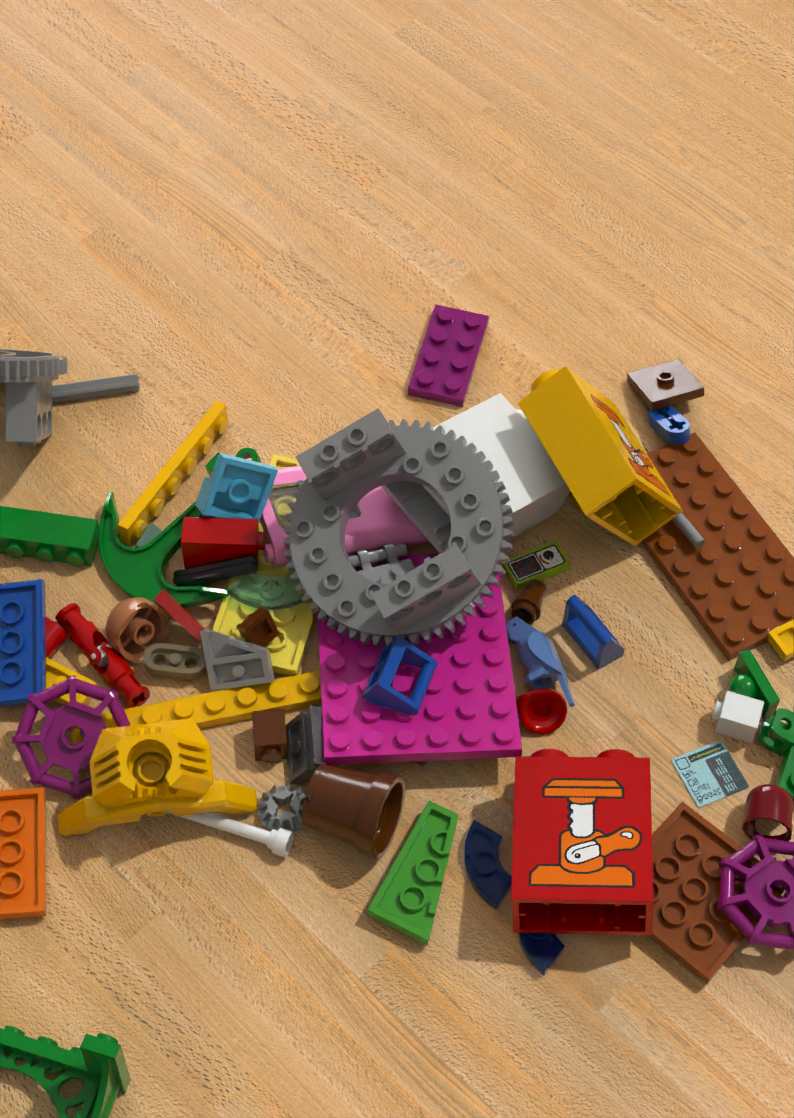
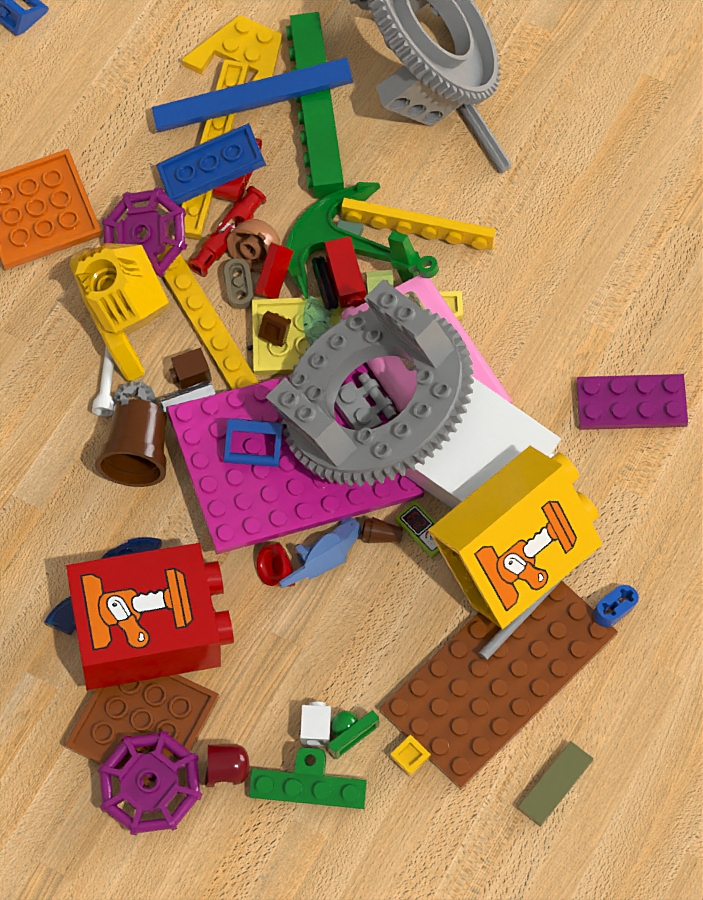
camera: 80 degrees right, 10 degrees up
(234, 661) = (243, 322): light grey wing -> none
(236, 488) = (384, 260): medium azure plate -> none
(415, 880) = (101, 509): bright green wing -> none
(590, 633) = (364, 588): blue tile -> none
(665, 384) = (663, 593): plate -> none
(710, 773) = (261, 716): clear light blue sticker -> none

